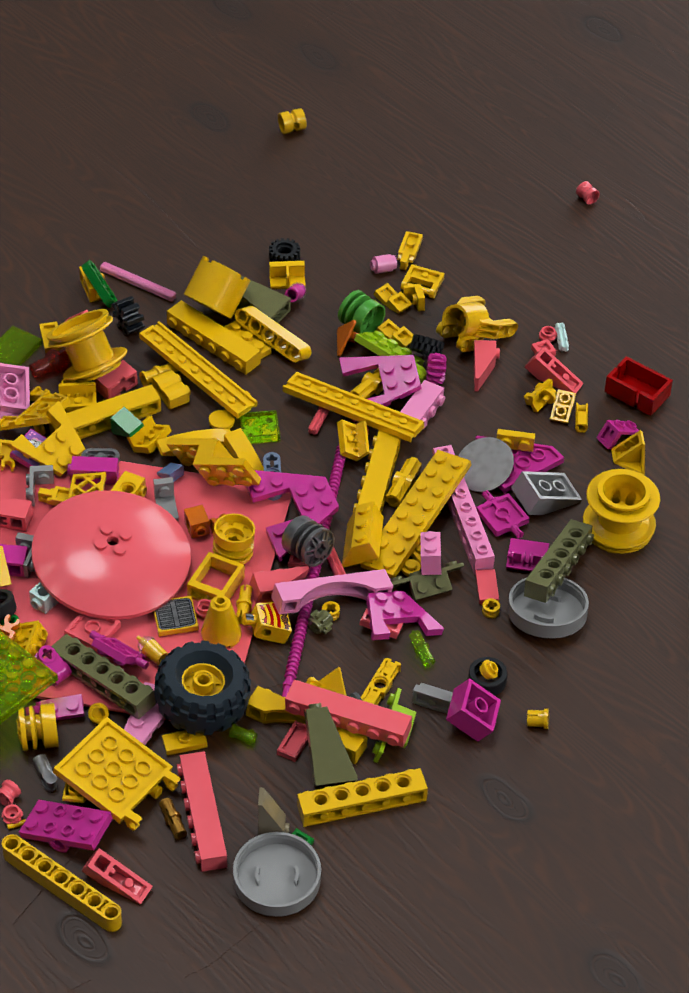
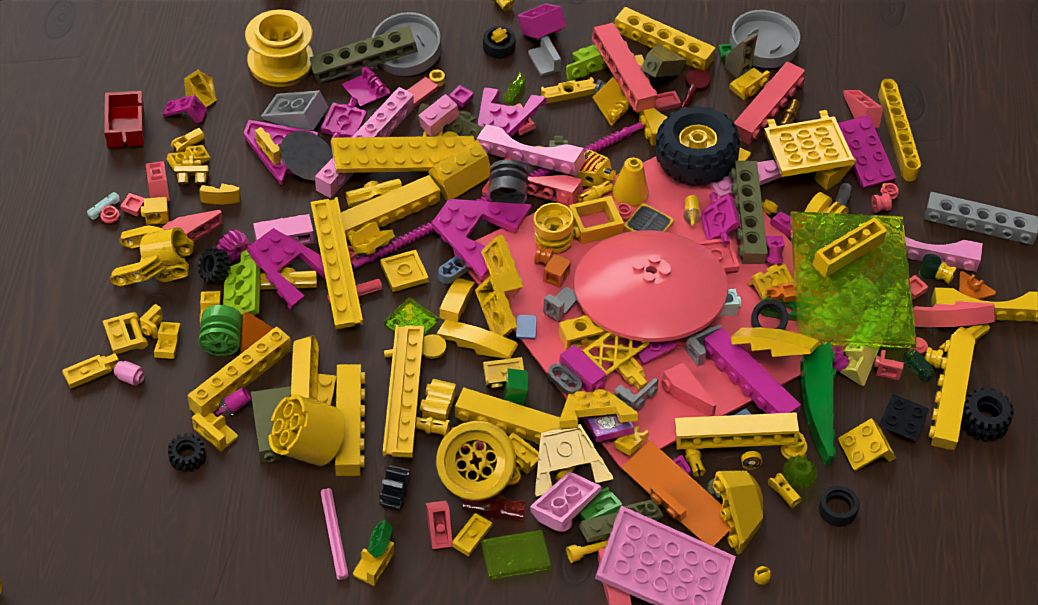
camera: 135 degrees left, 5 degrees up
(242, 822) = (749, 83): none -> yellow bracket
(287, 785) = (696, 80): none -> dark red piece
(307, 449) = (404, 270): none -> yellow plate
(317, 310) = (240, 371): none -> yellow brick
(450, 605) = (461, 96): none -> dark pink plate
(500, 395) = (225, 195): none -> yellow slope
(521, 355) = (155, 210): none -> yellow brick

